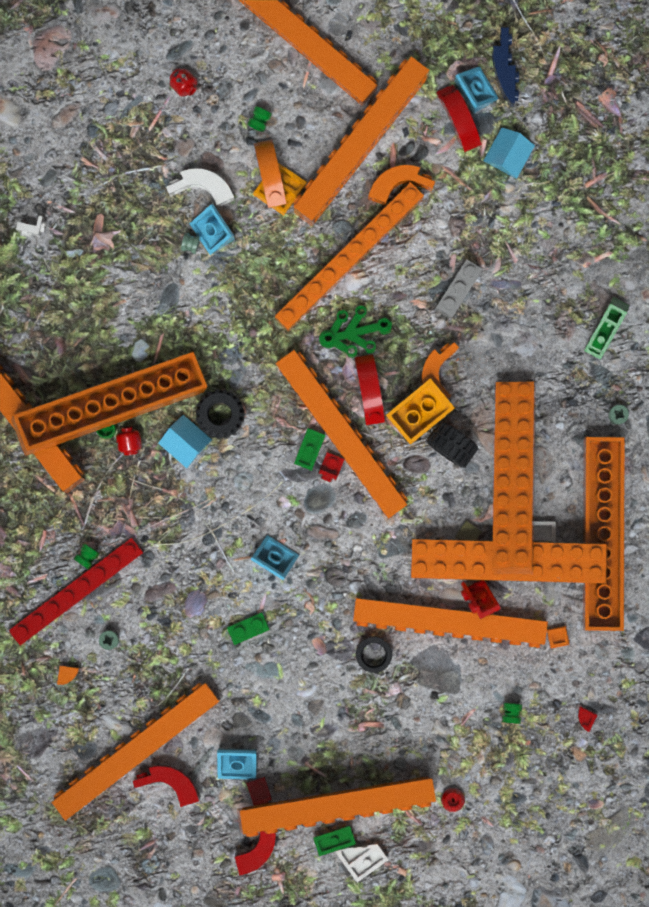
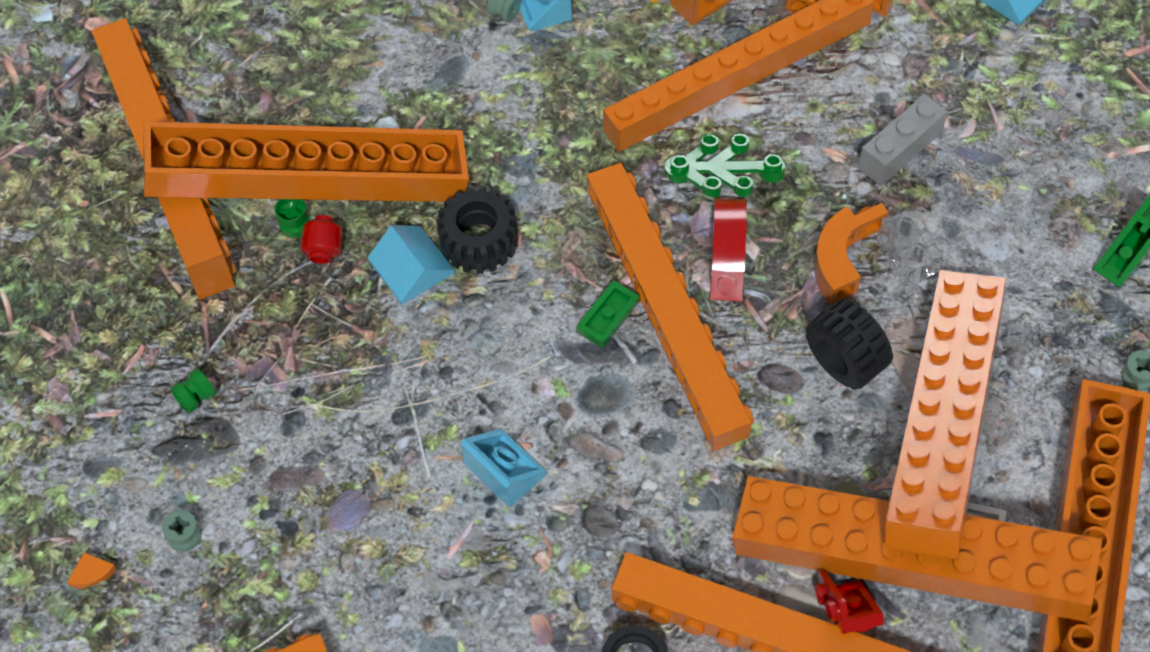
camera: 15 degrees right, 25 degrees down
(76, 591) = (154, 445): red plate -> none
(248, 628) = (425, 569): green plate -> none
(331, 467) = (636, 349): red bracket -> none
(420, 411) = (803, 287): light orange slope -> none

